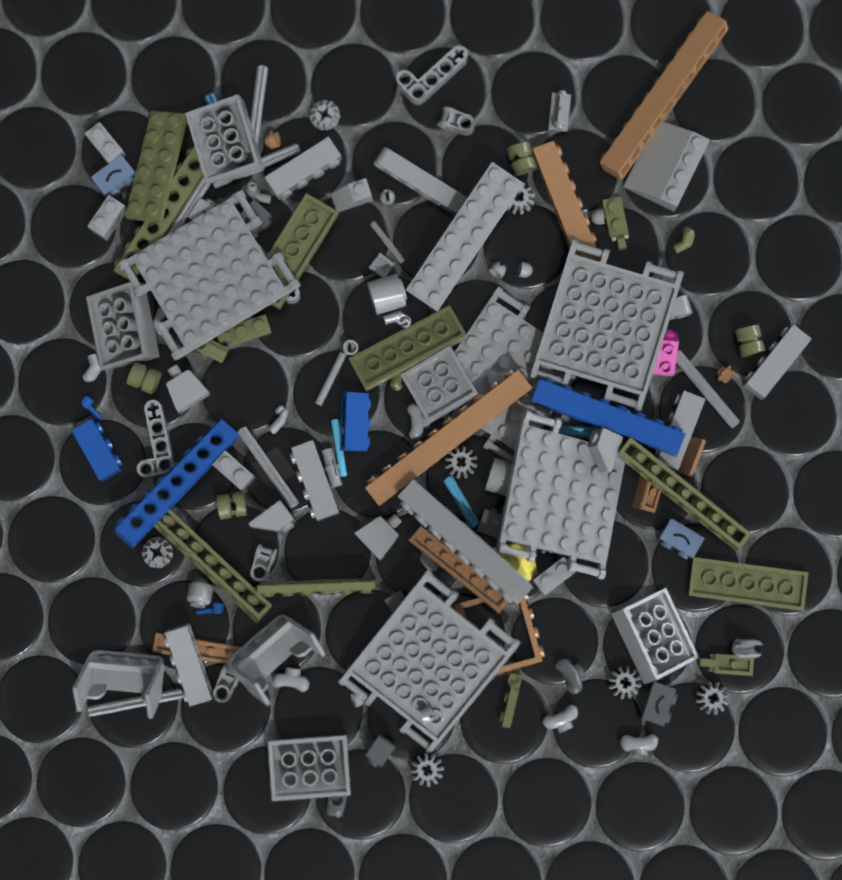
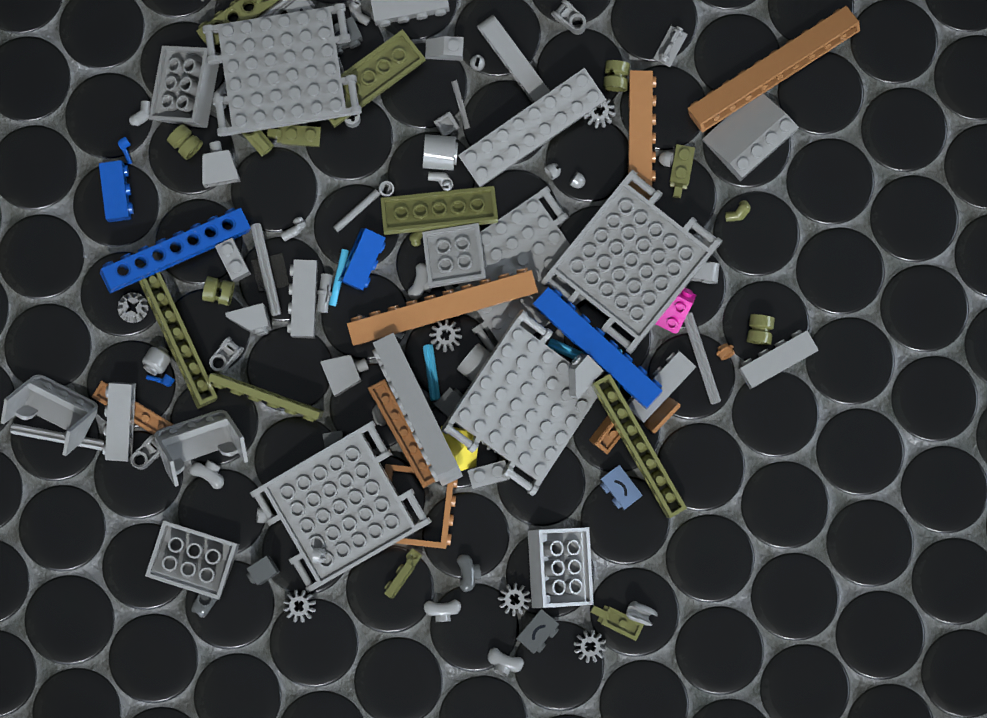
camera: 25 degrees right, 0 degrees up
(156, 438) = (181, 202): light grey beam -> none
(748, 584) = (666, 554): olive plate -> none

